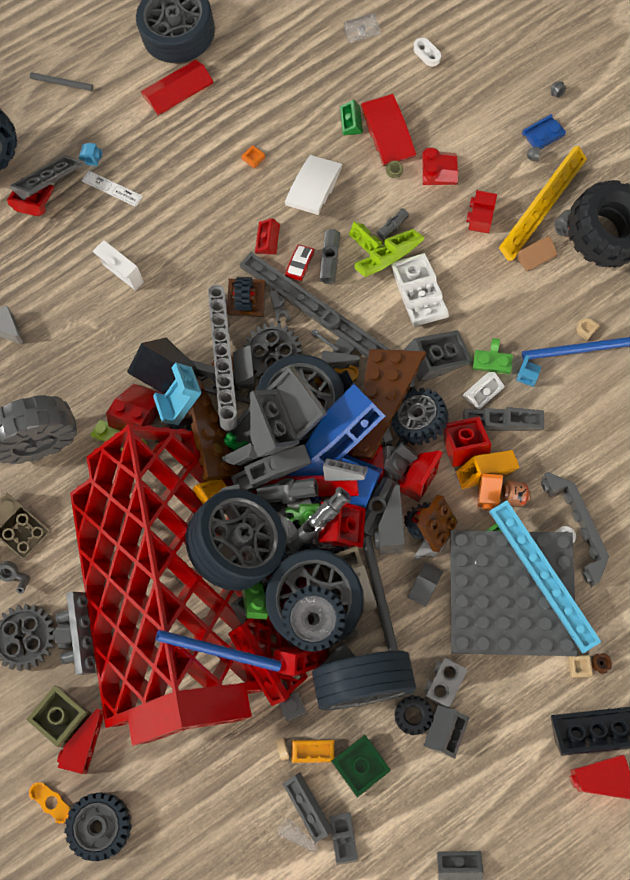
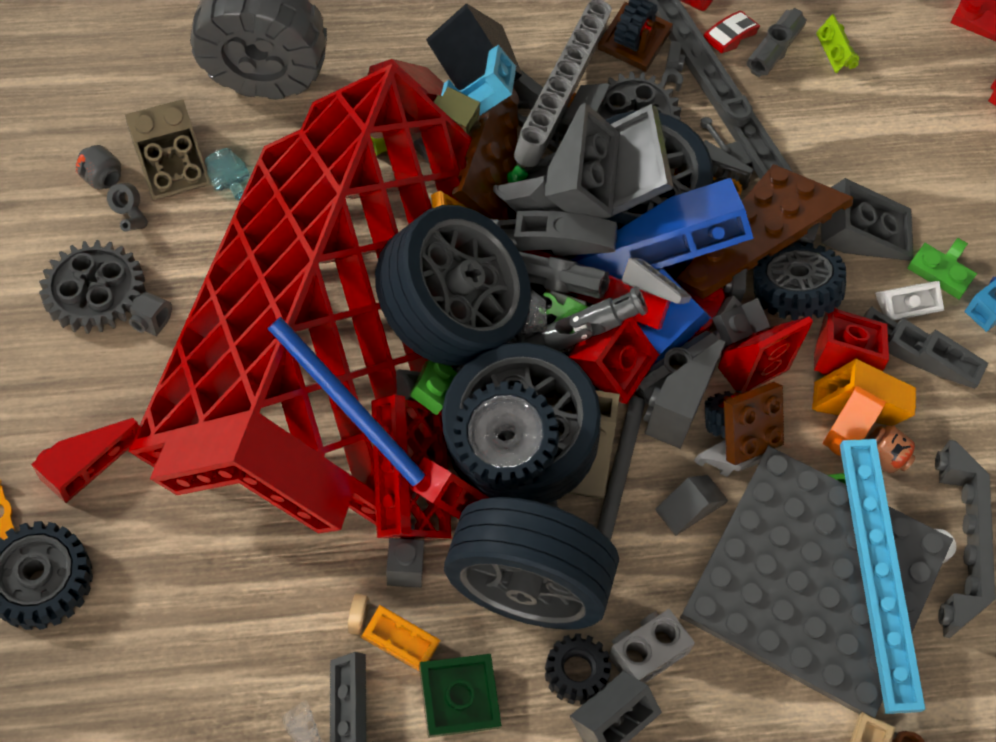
camera: 15 degrees right, 10 degrees down
(57, 519) = (226, 171): none -> clear light blue piece
(58, 716) = (73, 400): olive brick -> none
(82, 641) = (178, 298): dark grey plate -> none
(174, 419) = (459, 108): none -> olive brick
(392, 224) = (885, 45): dark grey pin -> none
(394, 249) = (870, 73): lime slope -> none
(419, 290) = (881, 137): white slope -> none

